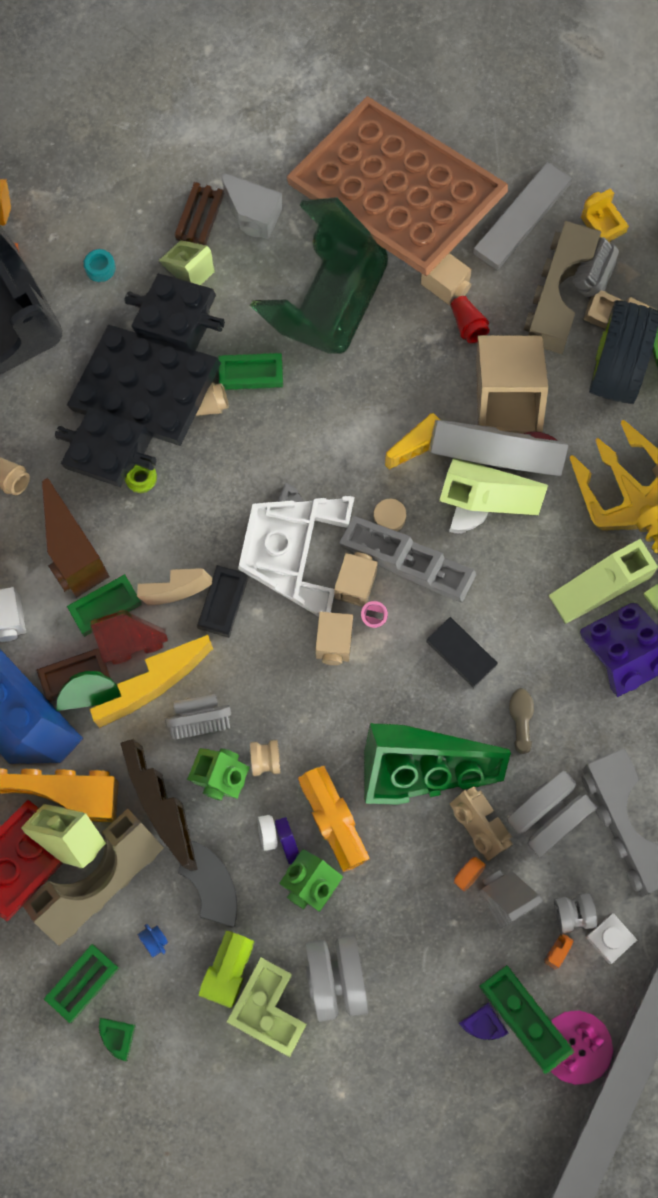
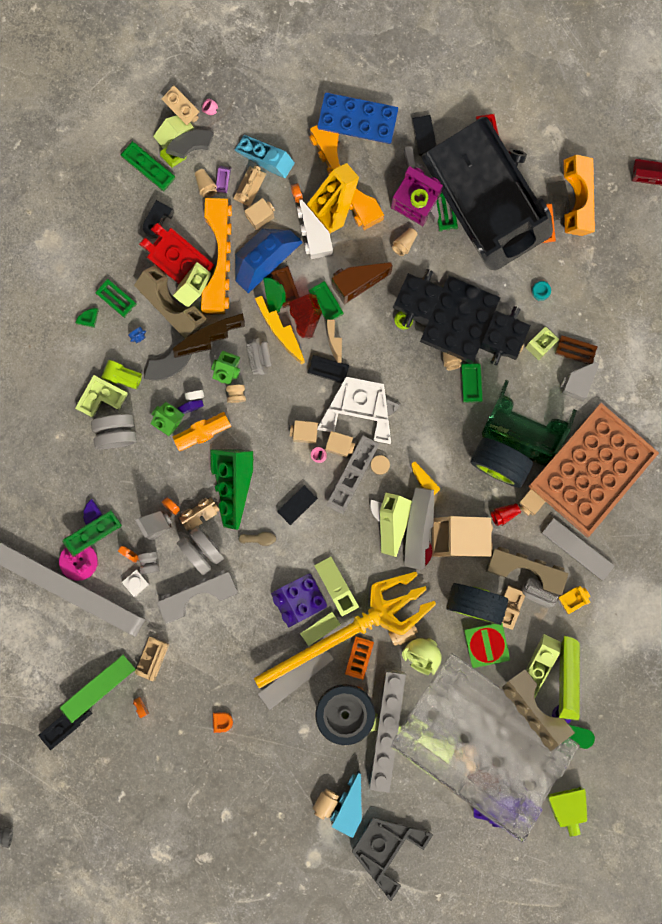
camera: 85 degrees right, 10 degrees up
(388, 313) = (501, 462): none -> black wheel

